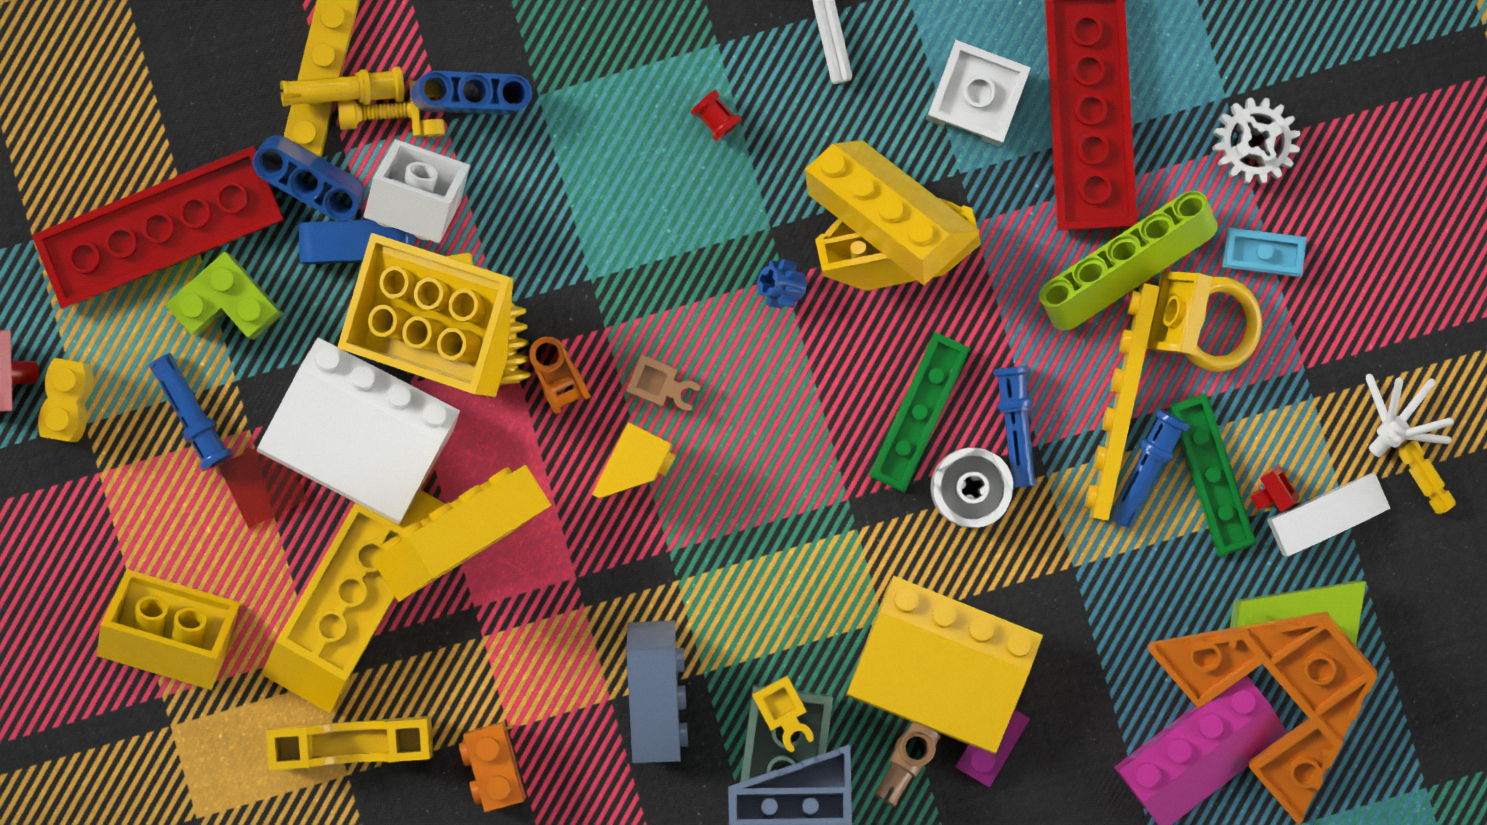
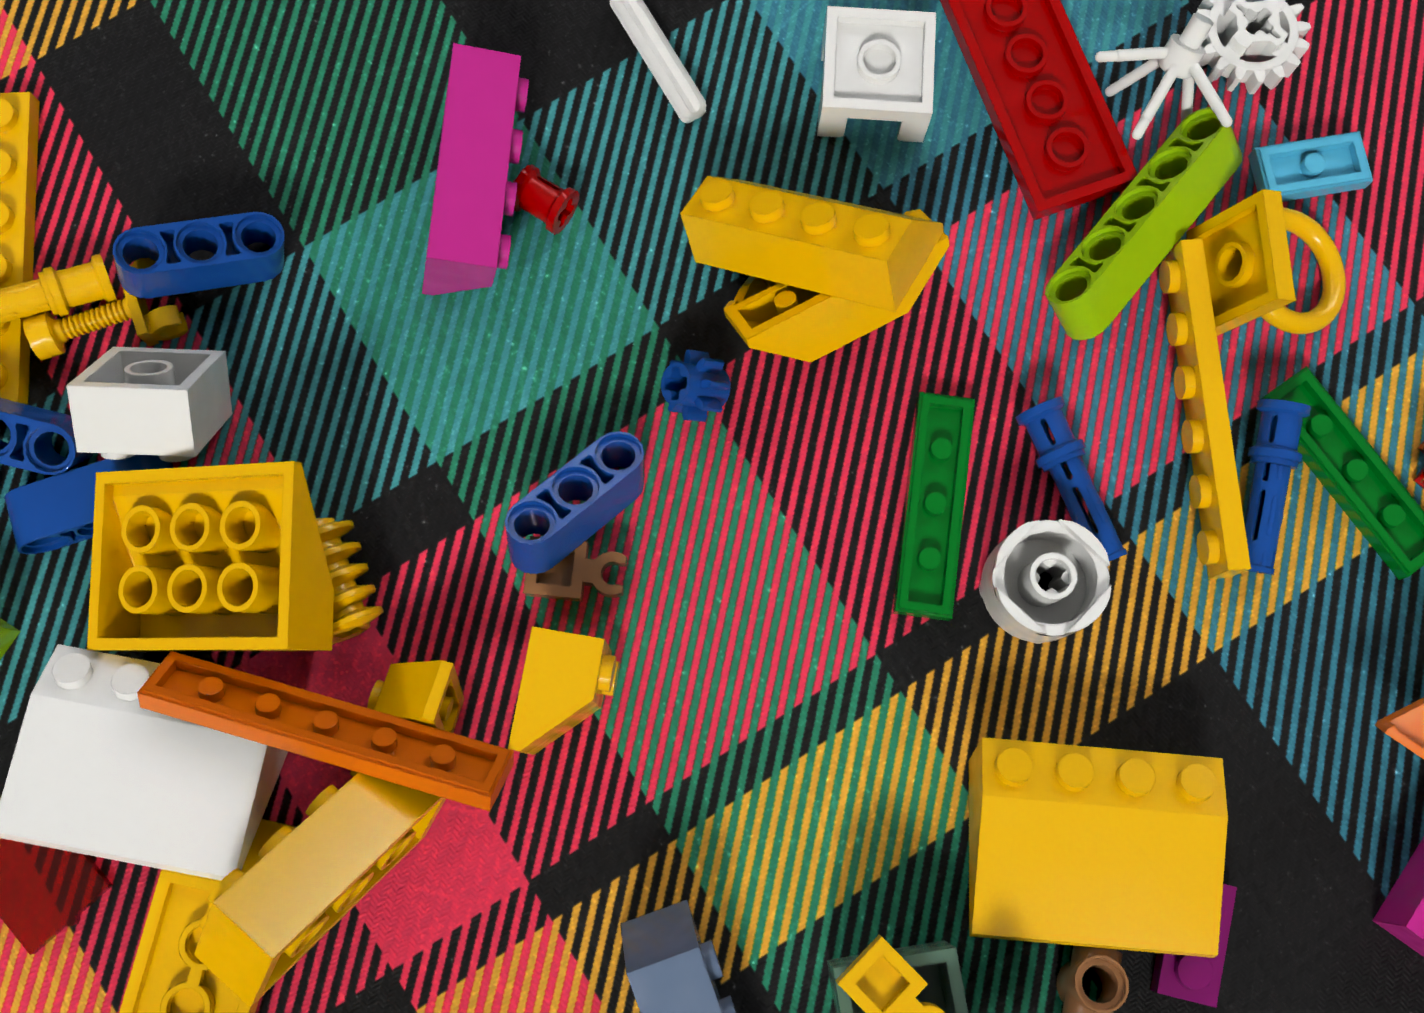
camera: 15 degrees left, 10 degrees down
(482, 448) = (328, 730): none -> orange tile
(537, 444) = (420, 693): none -> yellow slope
(558, 376) = (426, 605): orange piece -> none
(672, 89) = (473, 171): none -> dark pink slope
(687, 327) = (566, 524): none -> blue beam
(1185, 157) = (1178, 59): none -> white plant

